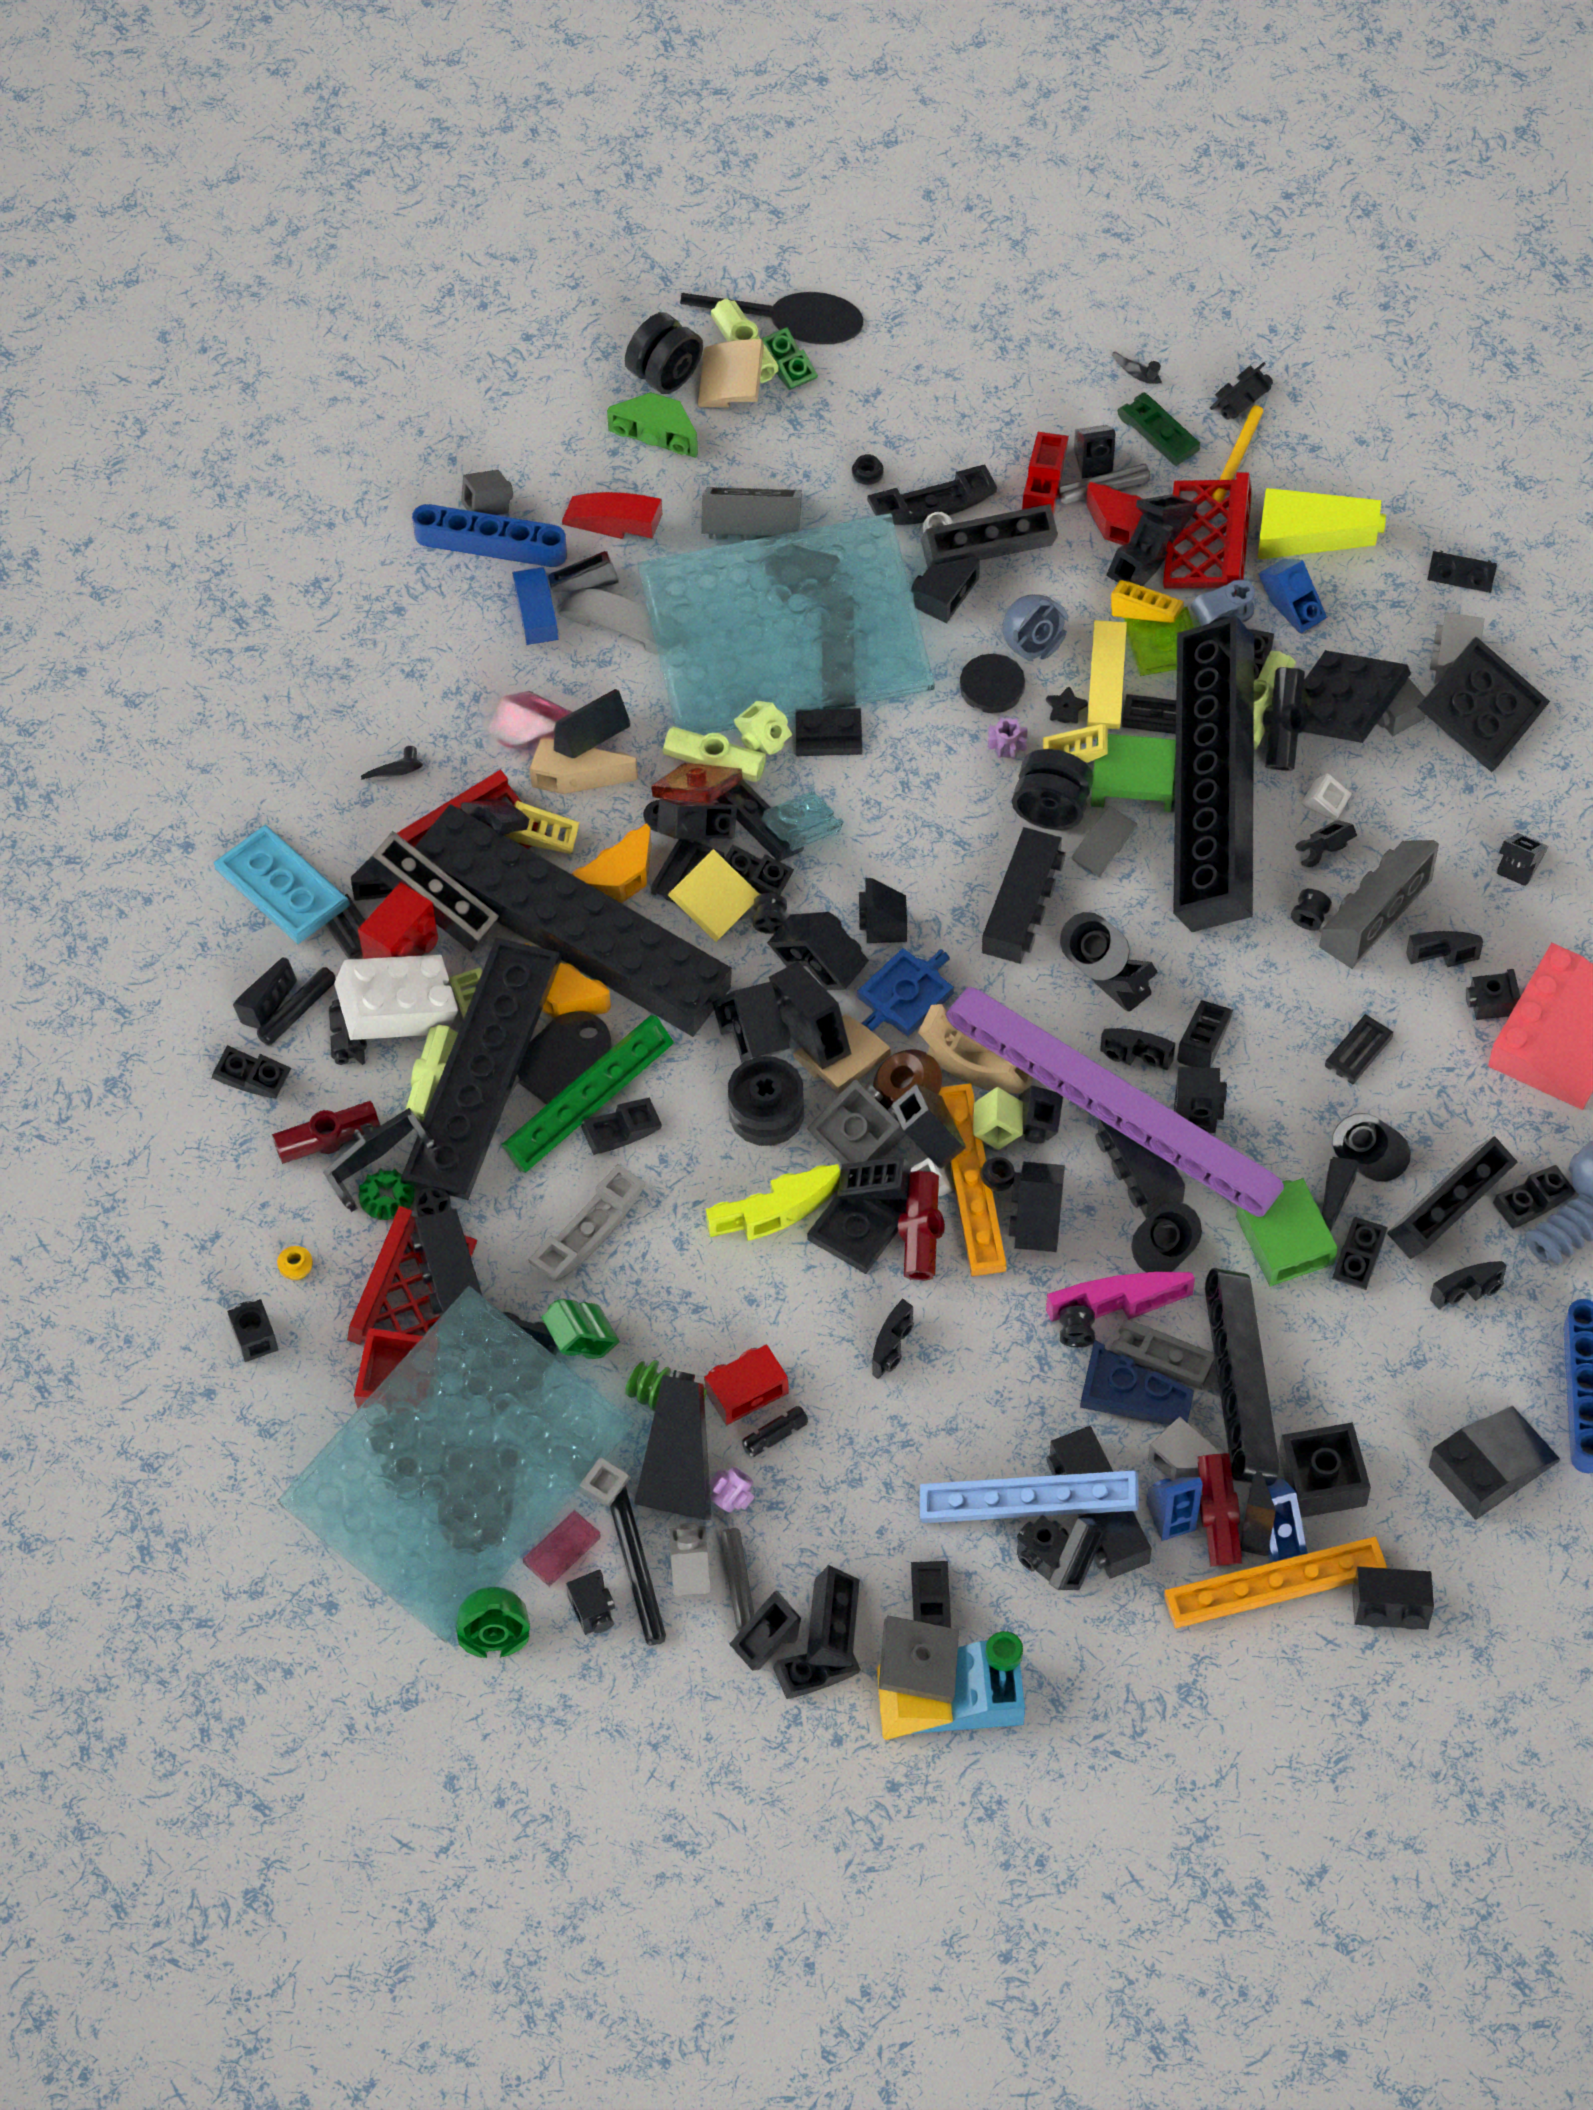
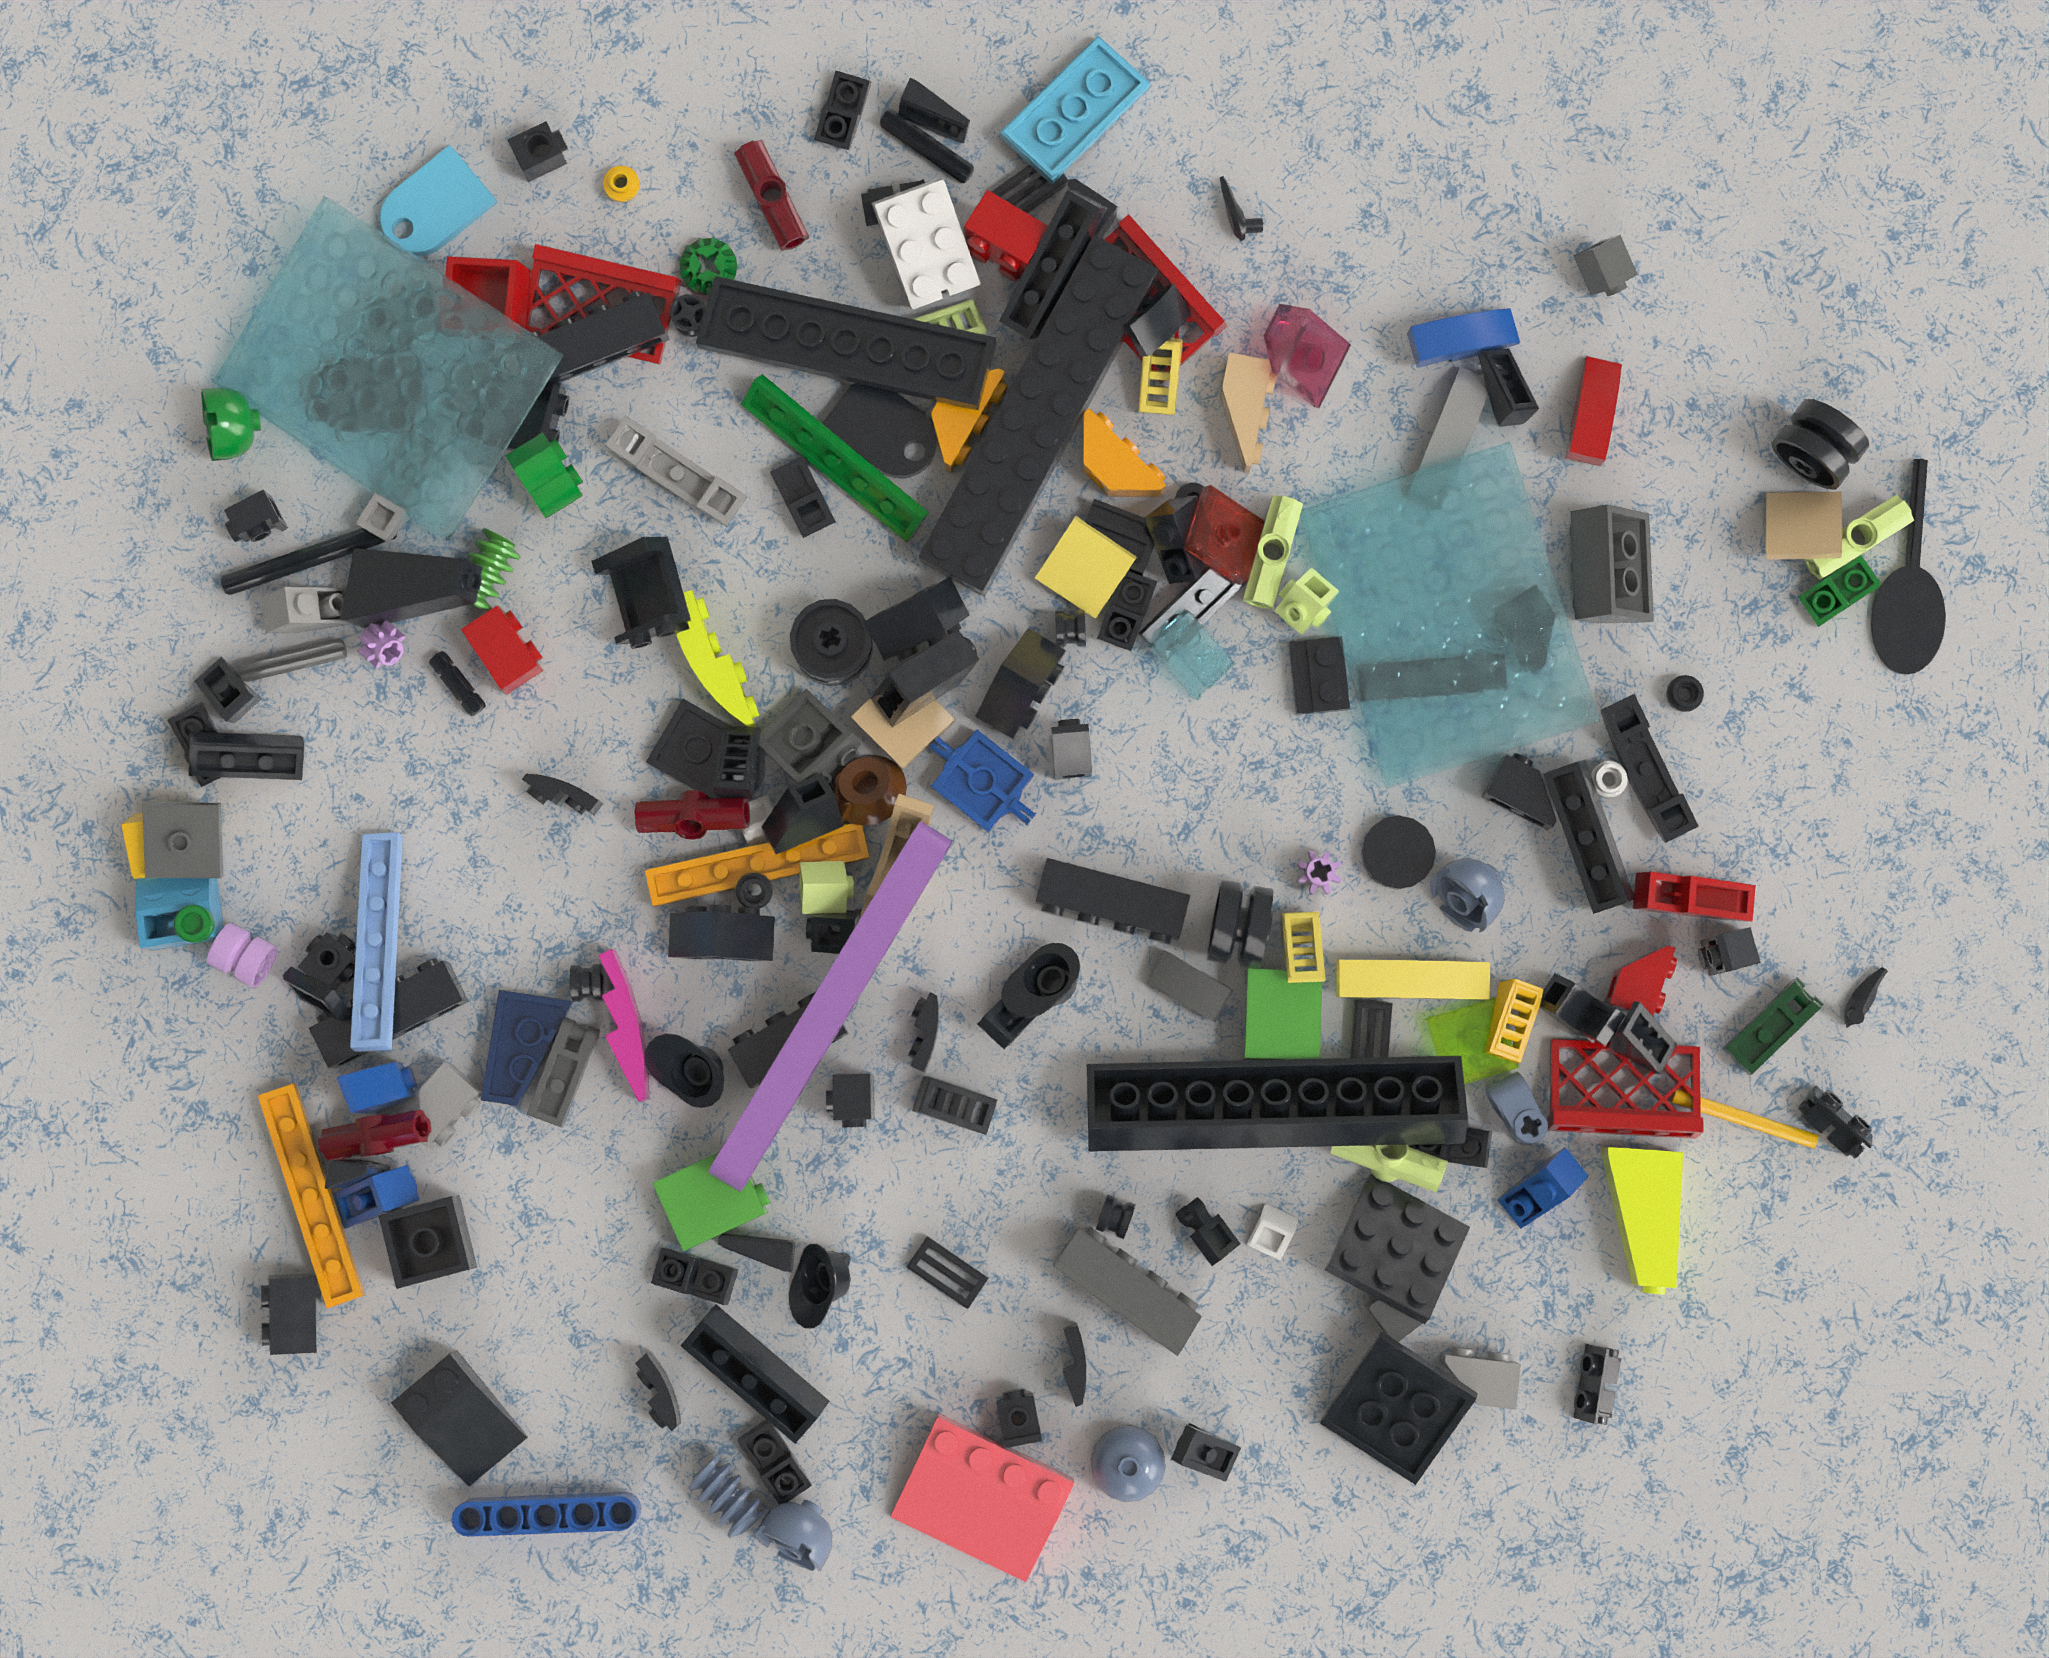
camera: 85 degrees right, 25 degrees up
(285, 1426) = (438, 202): none -> medium azure tile
(371, 1147) = (752, 239): black piece -> none
(430, 1067) = (849, 290): yellowish green piece -> none
(489, 535) = (1558, 260): blue beam -> none
(561, 1548) = (319, 484): clear pink plate -> none
(591, 725) = (1288, 413): black slope -> none
(655, 422) = (1729, 447): bright green slope -> none
(703, 1250) = (645, 589): none -> black panel
(931, 1593) = (281, 851): black slope -> none
(1038, 1626) = (238, 953): none -> lavender wheel
(1064, 714) = (1374, 946): black plate -> none
(1116, 480) = (1689, 966): dark grey axle -> none
(1241, 1376) = (527, 1153): black beam -> none
(1284, 719) = (1356, 1181): black piece -> none
(1533, 915) = (1128, 1463): none -> sand blue cylinder

